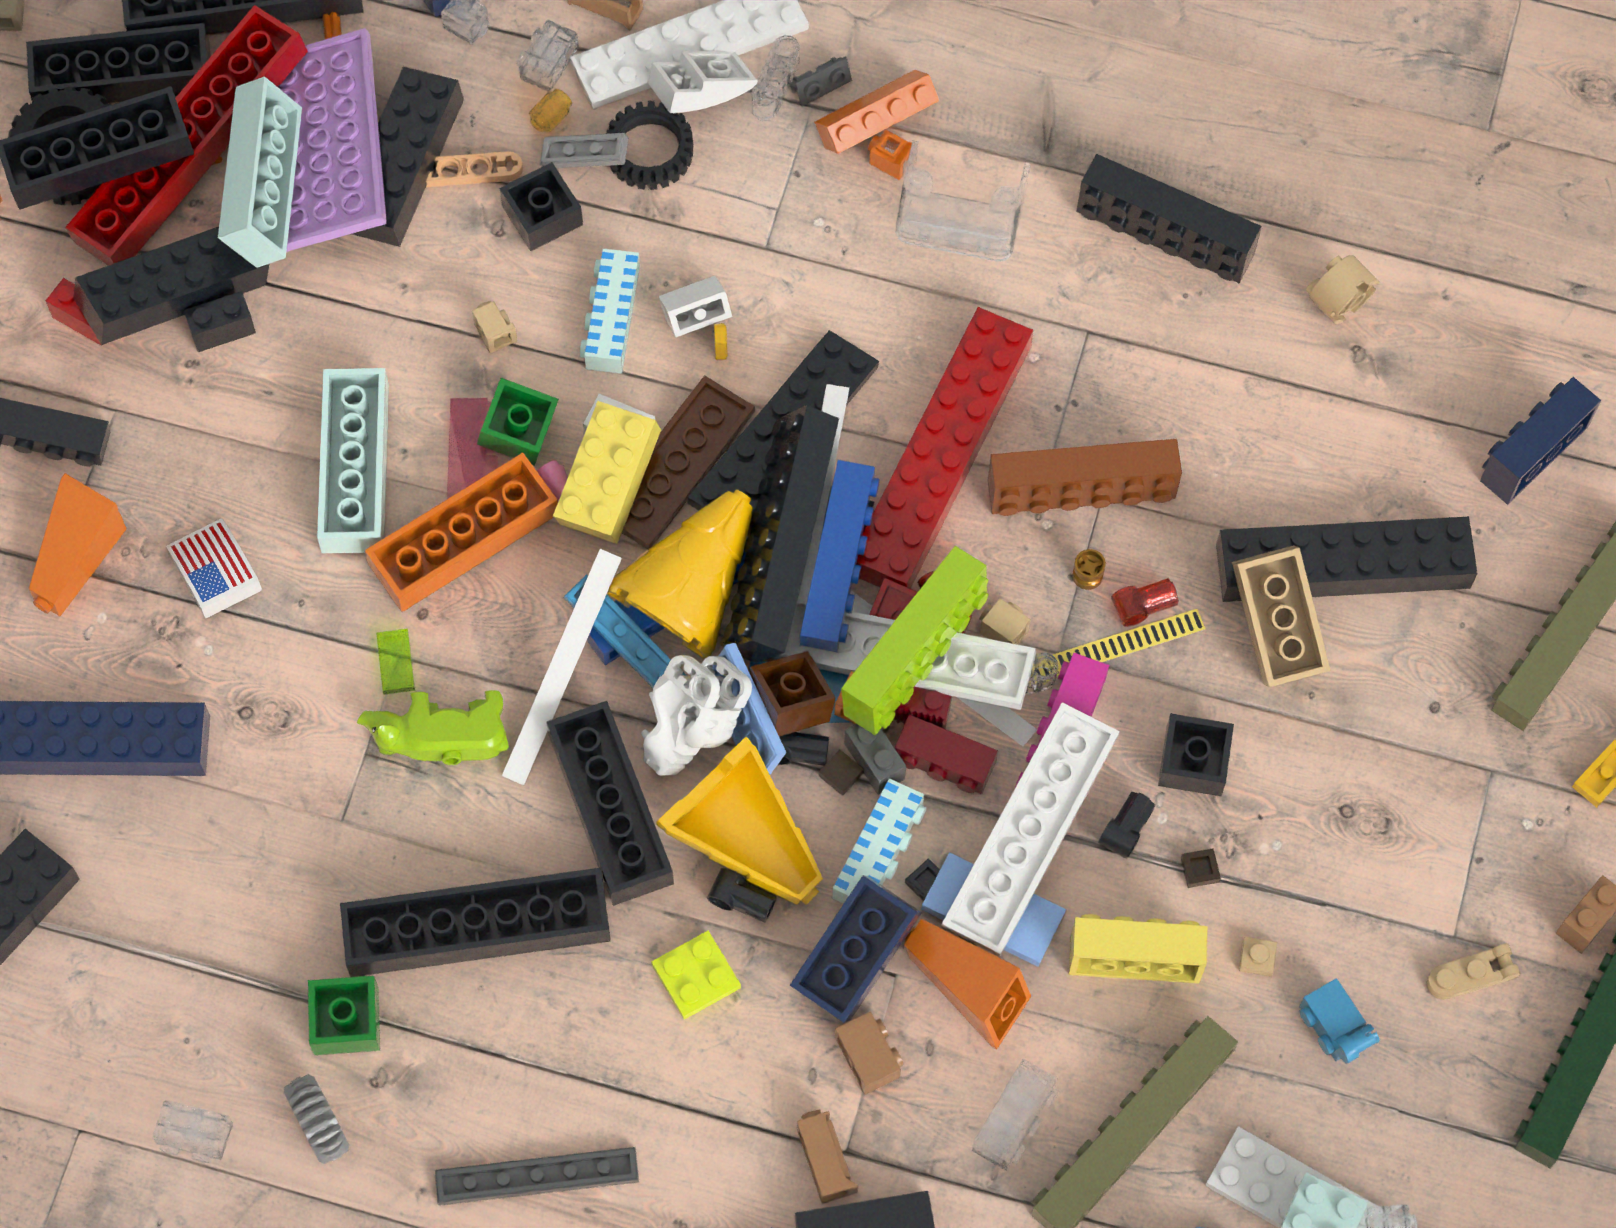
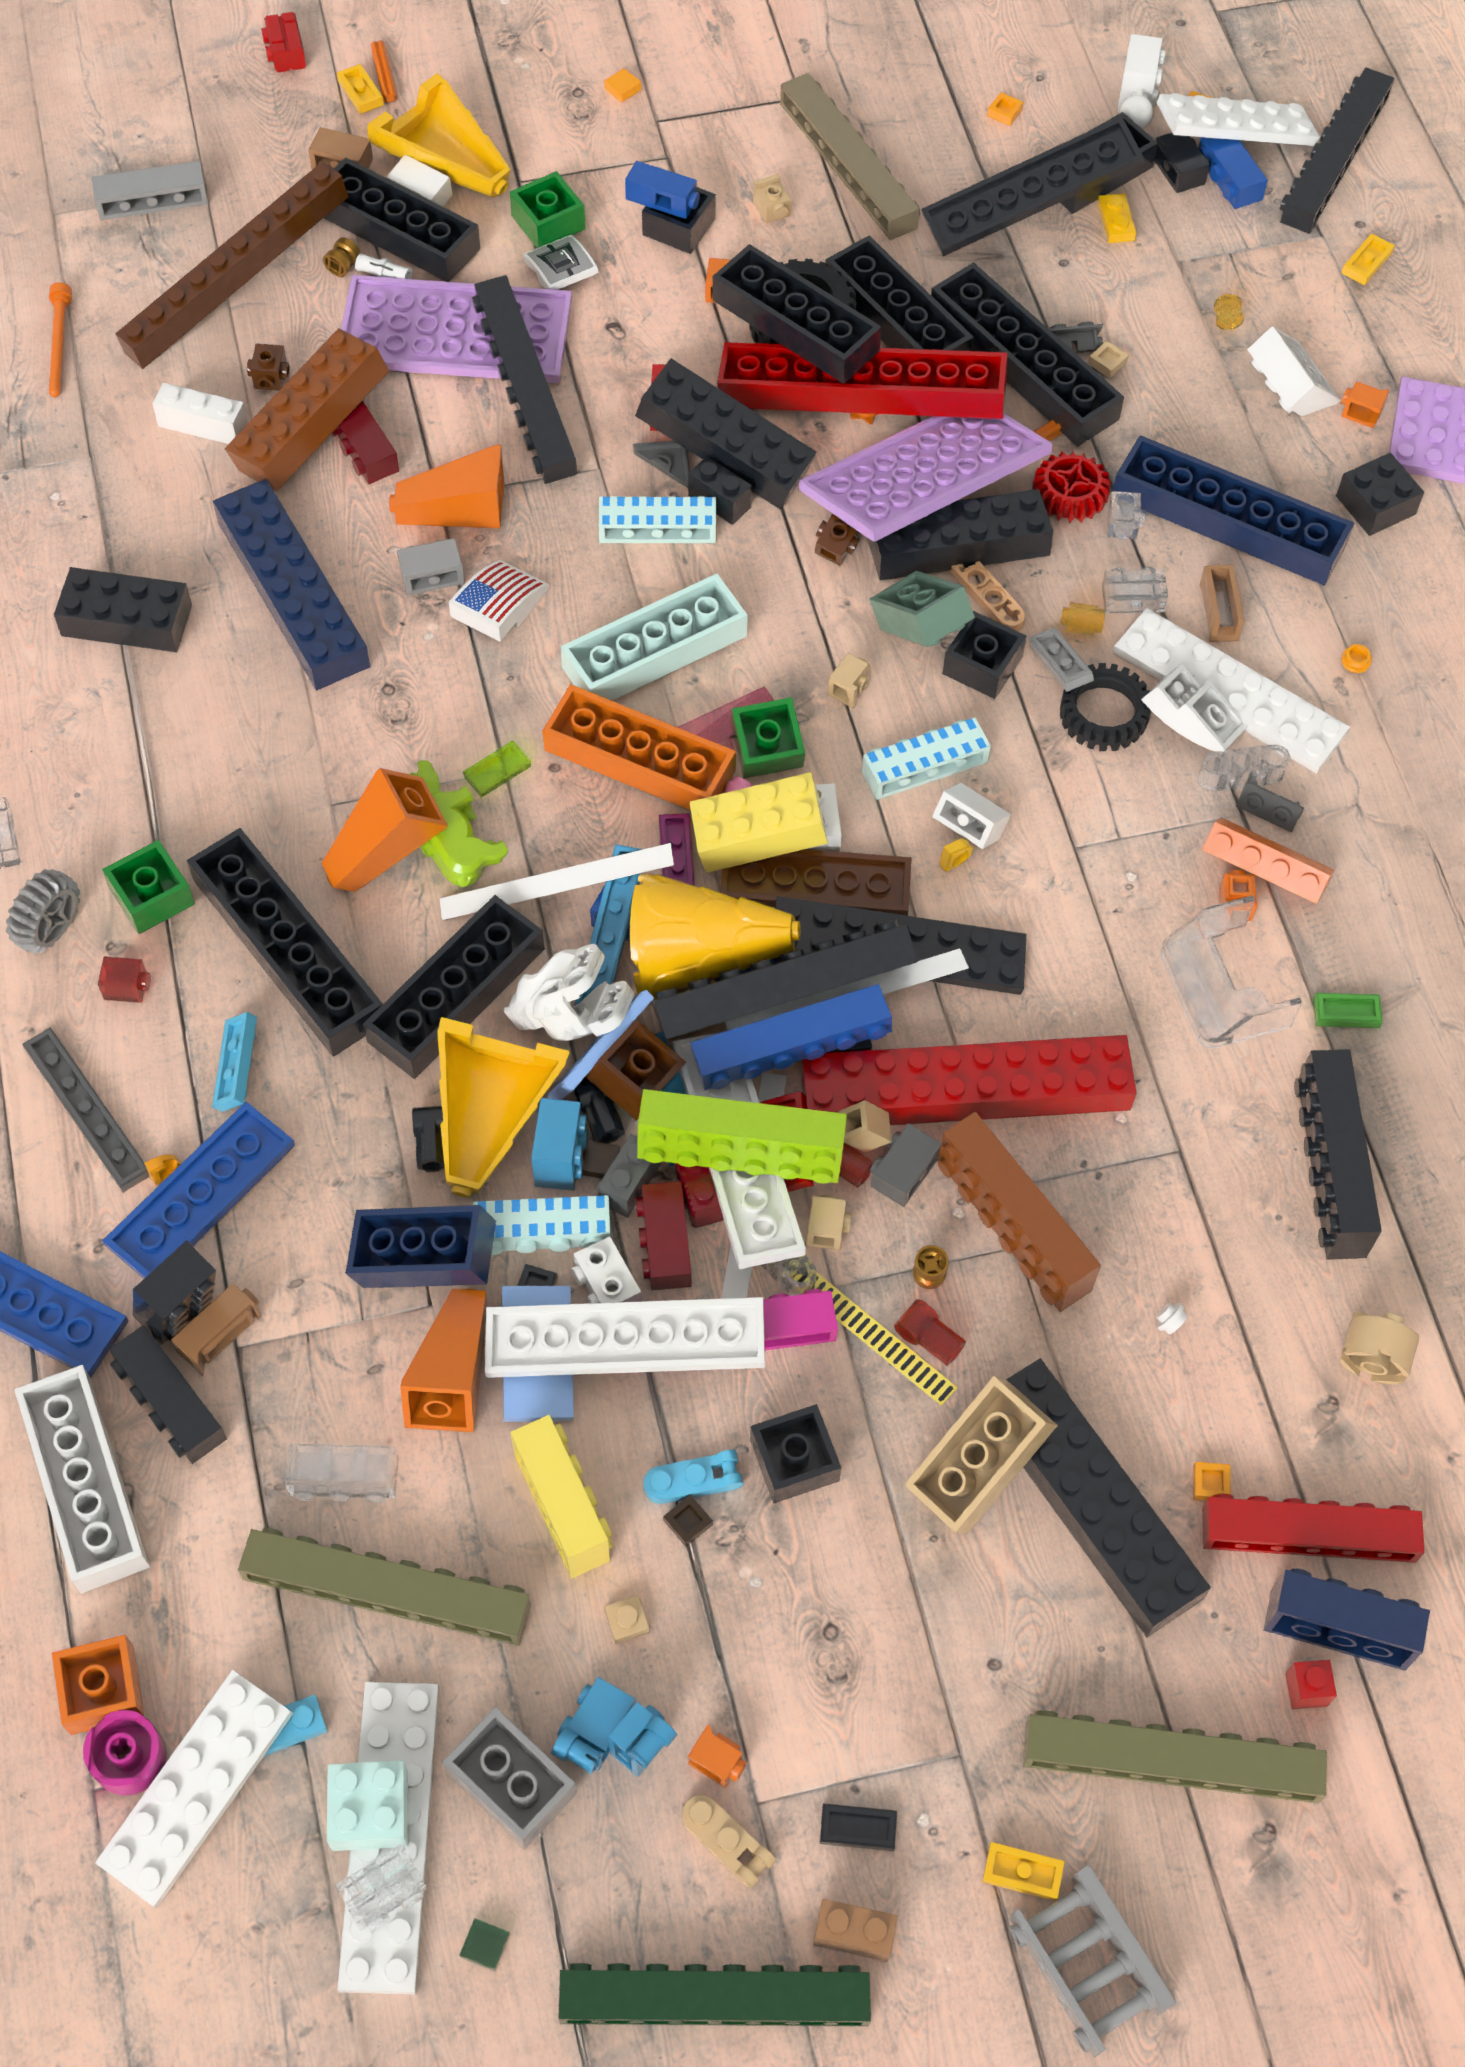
camera: 60 degrees right, 5 degrees down
(137, 607) = (430, 566): none -> light grey brick
(147, 347) = (667, 457): none -> dark grey tile
(215, 390) = (657, 519): none -> light aqua brick
(260, 172) = (856, 431): light aqua brick -> none
(341, 256) = (835, 540): none -> reddish brown brick
(407, 26) = (1072, 486): none -> red gear
(421, 776) = (384, 827): none -> orange slope
(426, 1082) = (123, 979): none -> clear red brick
(470, 226) = (922, 608): none -> sand green brick
(567, 553) = (677, 831): none -> magenta tile
(570, 1024) = (234, 1062): none -> medium azure plate
(641, 1134) = (161, 1167): none -> light orange tile
(683, 1114) = (200, 1190): none -> blue plate
(696, 974) = (338, 1139): neon yellow plate -> none
(797, 1164) = (174, 1293): none -> black brick
(818, 793) = (559, 1144): none -> dark azure brick
(868, 1052) = (336, 1314): medium nougat brick -> none
(940, 543) = (866, 1126): none -> tan brick
(958, 821) = (605, 1274): none -> white brick
(988, 536) = (905, 1164): none -> dark grey brick
(1039, 138) = (1347, 1010): none -> bright green tile
(1124, 831) = (680, 1429): black piece -> none
(1166, 847) = (692, 1477): none -> medium azure plate
(1230, 420) = (1171, 1317): none -> white plate
(1348, 1105) = (510, 1777): none -> light grey brick
(1375, 986) = (640, 1737): none -> dark azure hinge
(1376, 471) = (1210, 1480): none -> light orange tile
(1408, 944) = (717, 1757): none -> orange window
(1453, 423) = (1313, 1528): none -> red brick
(1464, 1193) = (484, 1944): none -> clear green tile
(1511, 872) = (858, 1827): none -> black tile
(1571, 494) = (1311, 1684): none -> red brick

